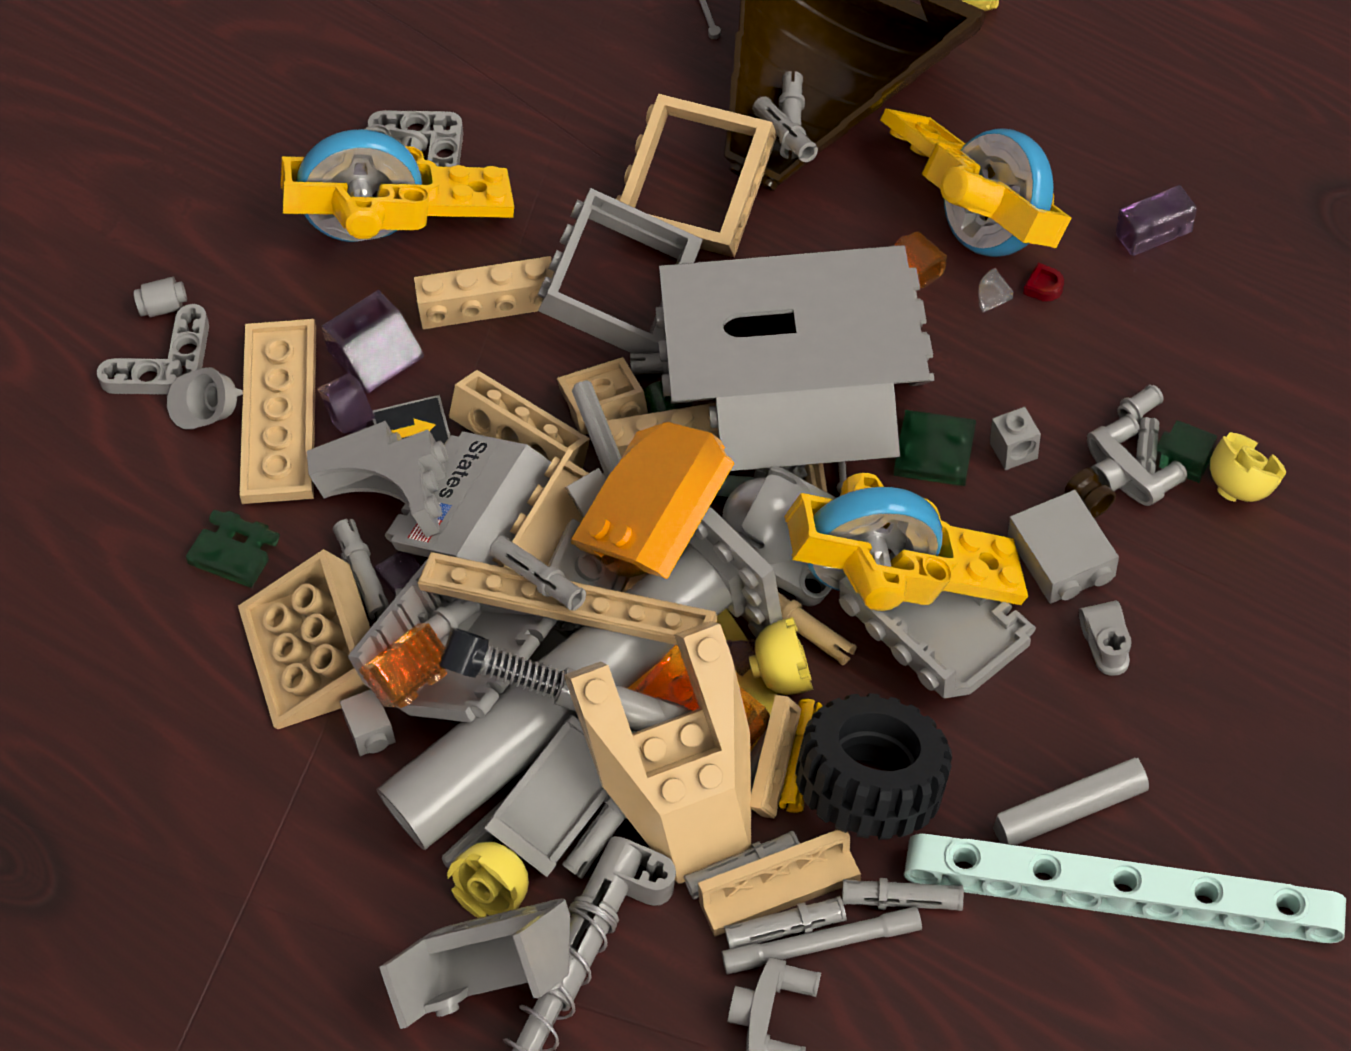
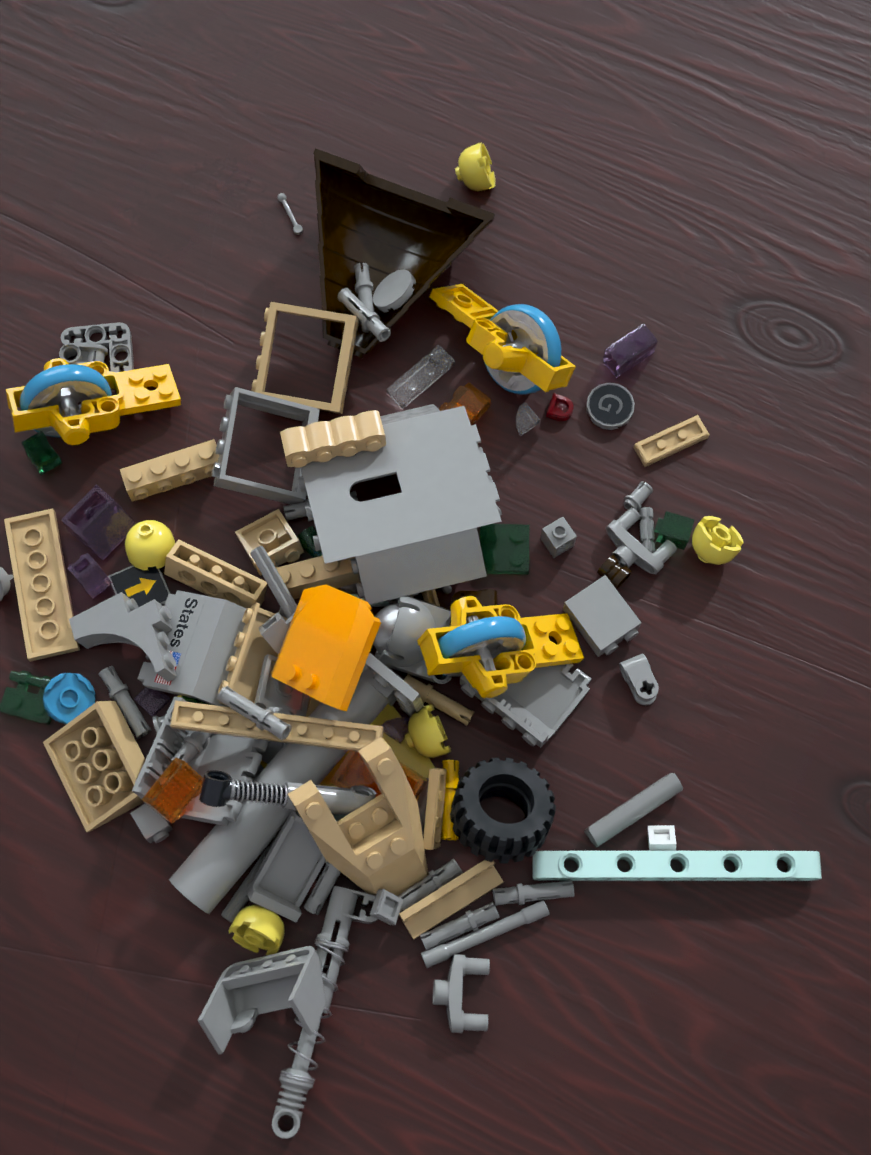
camera: 15 degrees left, 15 degrees up
(281, 547) = (68, 697): none -> dark azure tile
(311, 251) = (41, 453): none -> clear green bracket
(432, 374) = (148, 544): none -> light yellow cylinder
(681, 872) = (386, 907): none -> light grey tile
(704, 258) = (333, 438): none -> tan brick
(832, 106) = (394, 290): none -> light grey tile
(853, 221) = (420, 376): none -> clear hinge
(1107, 845) = (661, 838): none -> white plate
(1117, 288) = (610, 406): none -> black tile
(1200, 342) = (671, 440): none -> tan tile

